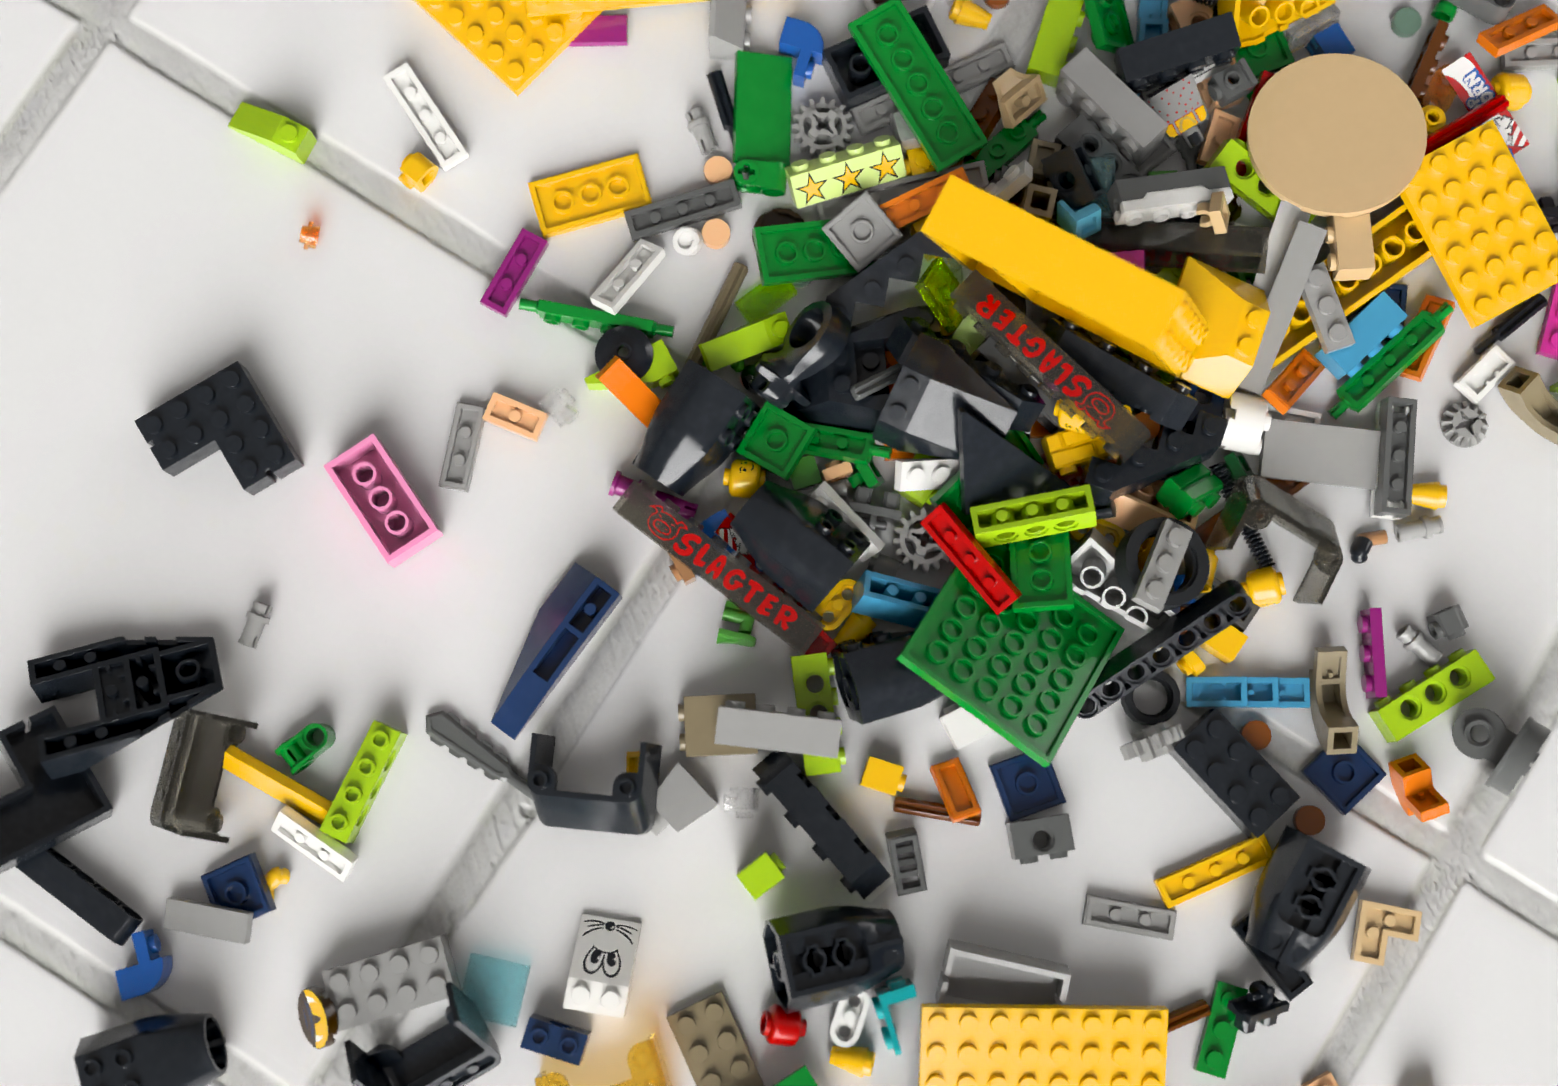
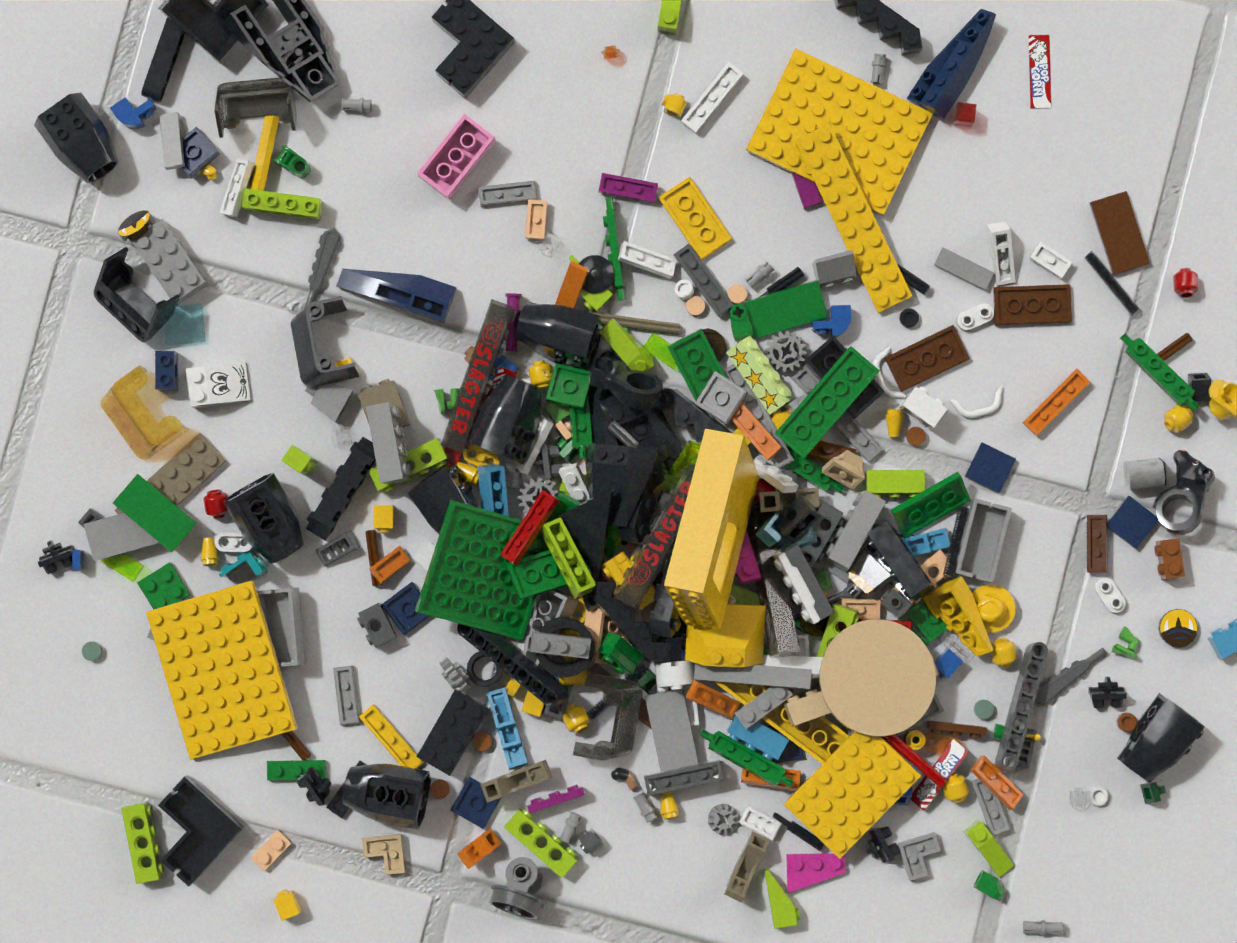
camera: 80 degrees right, 5 degrees up
(1216, 211) = (797, 614): tan tile -> none

